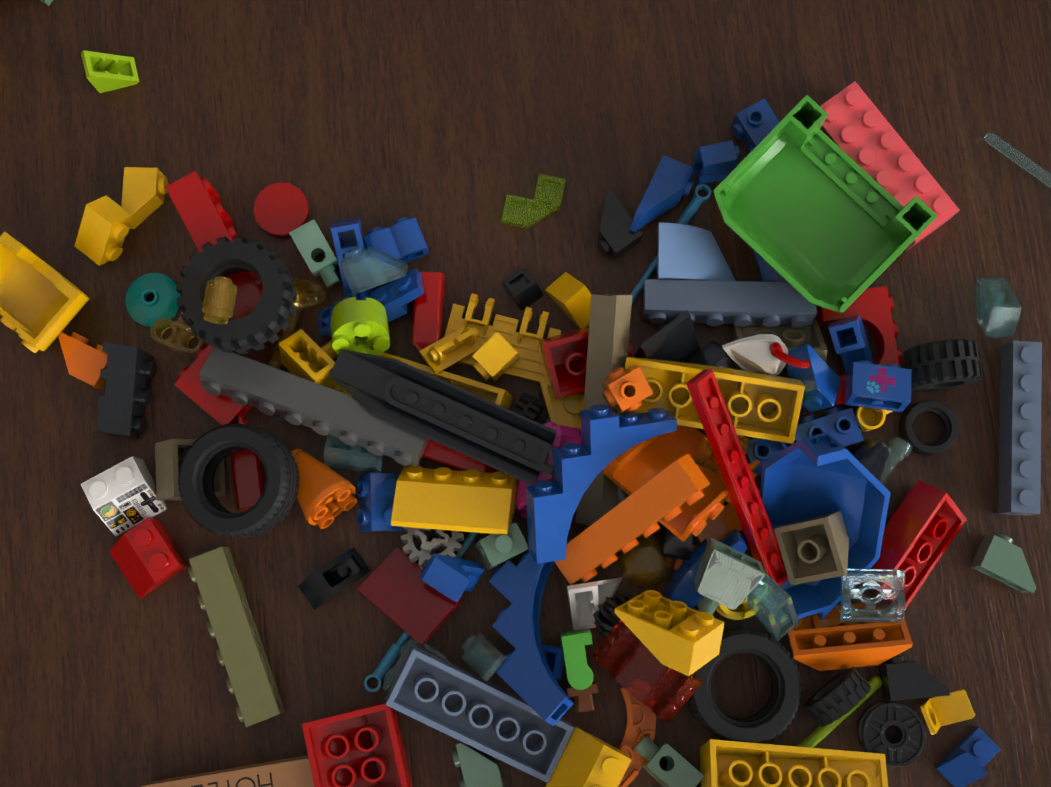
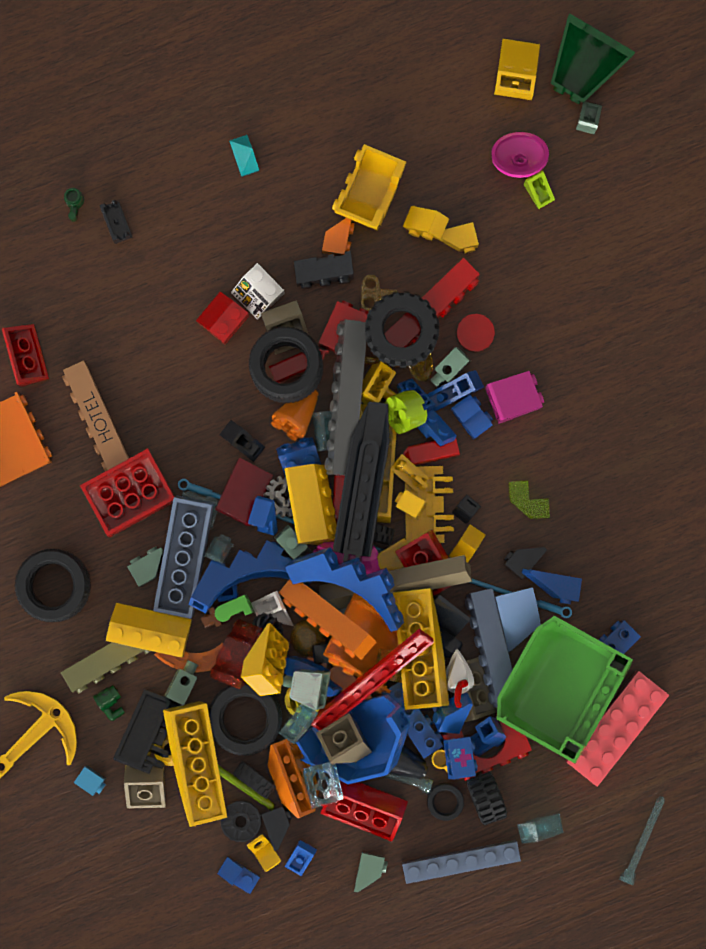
camera: 75 degrees right, 5 degrees up
(53, 80) = (520, 154): none -> dark pink dish
(161, 307) = (391, 276): teal dish -> none
(219, 300) = (391, 323): clear yellow brick -> none
(236, 636) = (190, 389): olive brick -> none
(370, 268) = (448, 407): clear light blue slope -> none
(385, 180) = (514, 396): none -> dark pink slope
(635, 388) = (408, 592): orange brick -> none
(715, 161) = (586, 615): blue brick -> none
(962, 657) = (300, 858): none -> blue slope

